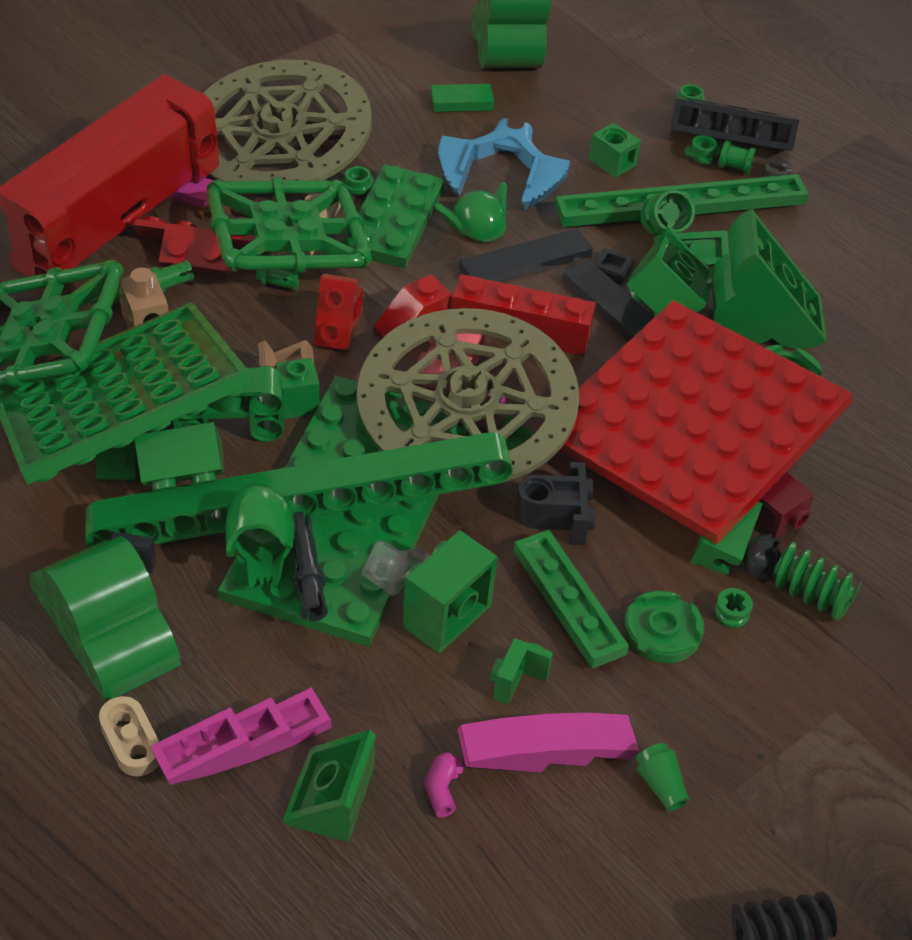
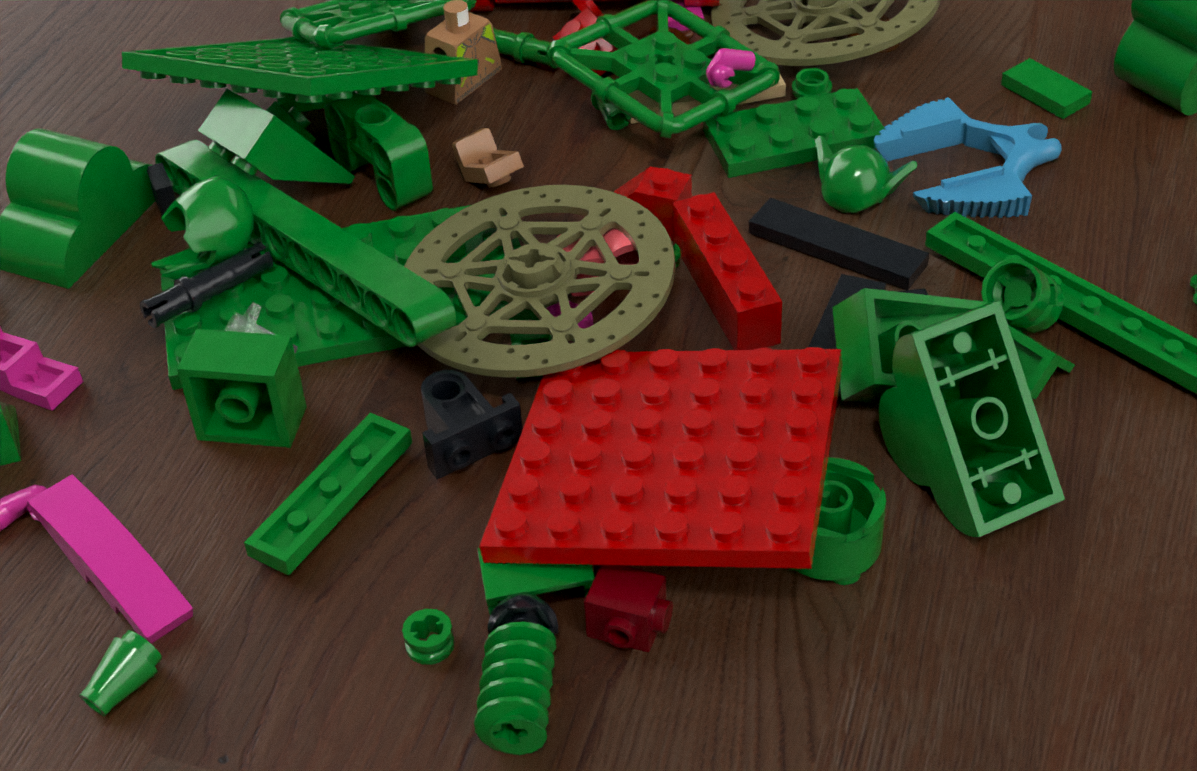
camera: 65 degrees right, 5 degrees down
(299, 387) = (455, 178): green brick -> none
(335, 203) = (725, 63): none -> dark pink arm
(337, 311) = (590, 150): red pin -> none
(519, 660) = (192, 490): green bracket -> none
(614, 149) = (1103, 219): green brick -> none
(663, 627) = (355, 590): green tile -> none

